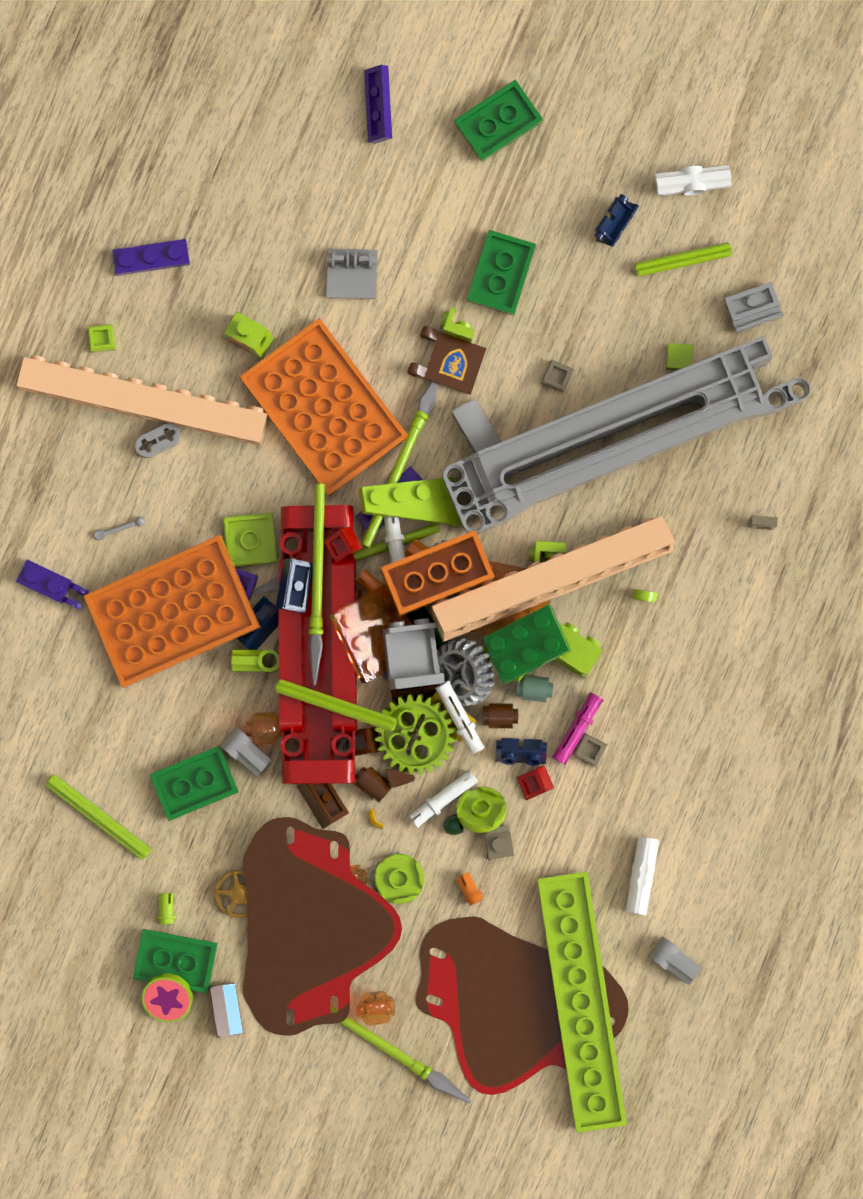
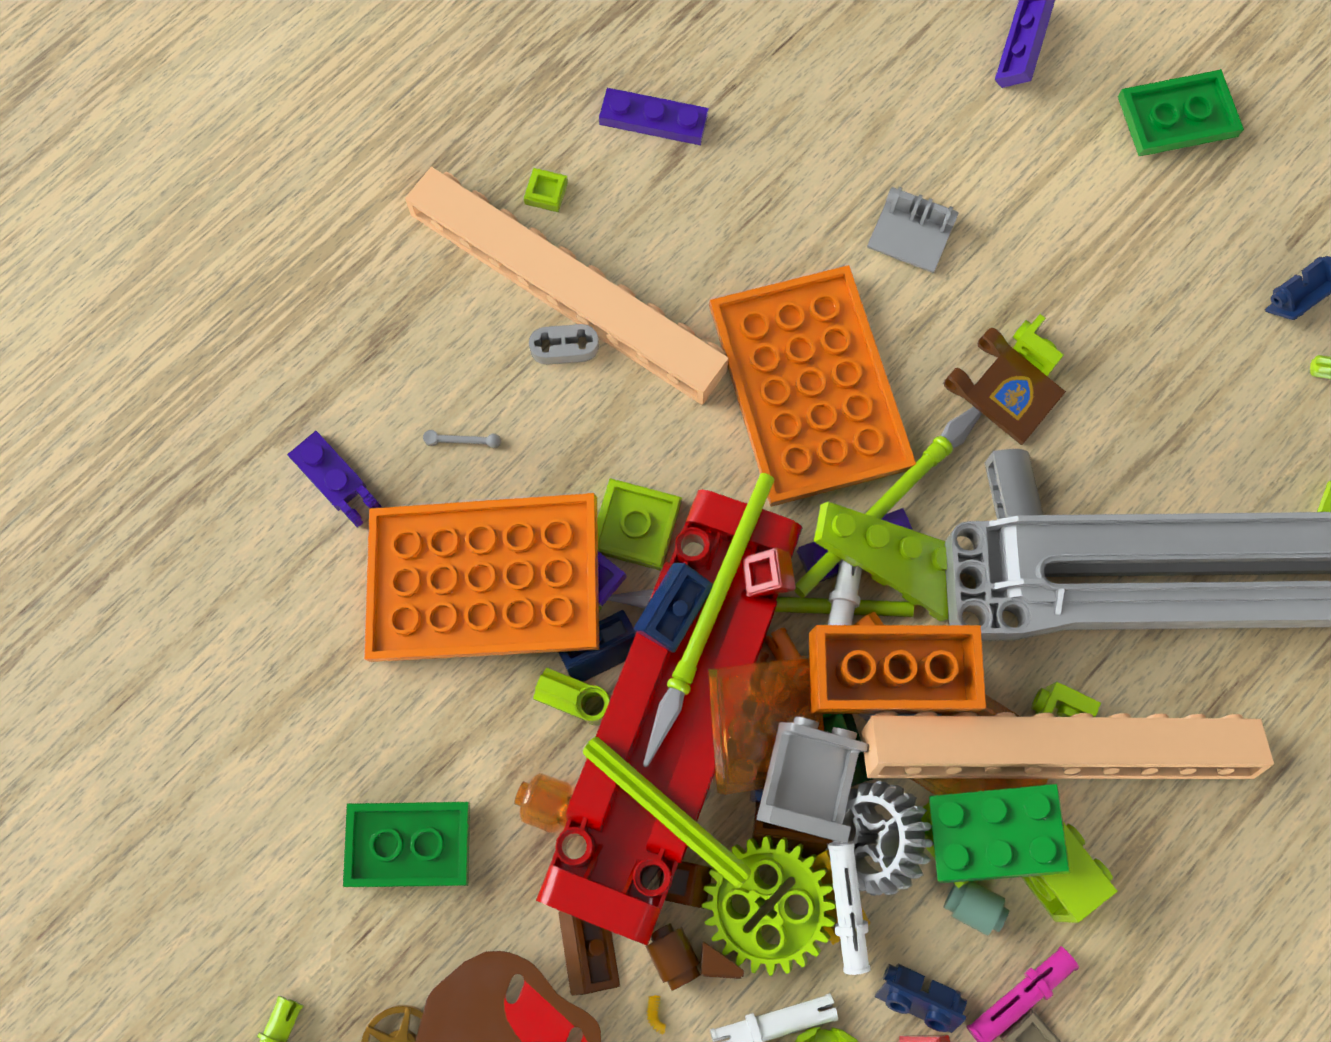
camera: 20 degrees right, 10 degrees down
(98, 817) = (246, 839): lime axle -> none
(244, 750) = (500, 821): light grey piece -> none
(248, 335) = (739, 244): lime torso -> none
(499, 715) = (908, 928): reddish brown brick -> none
(501, 272) = (1121, 300): green plate -> none
(557, 376) = (1155, 465): dark tan tile -> none
(644, 595) = (1193, 829): lime tile -> none

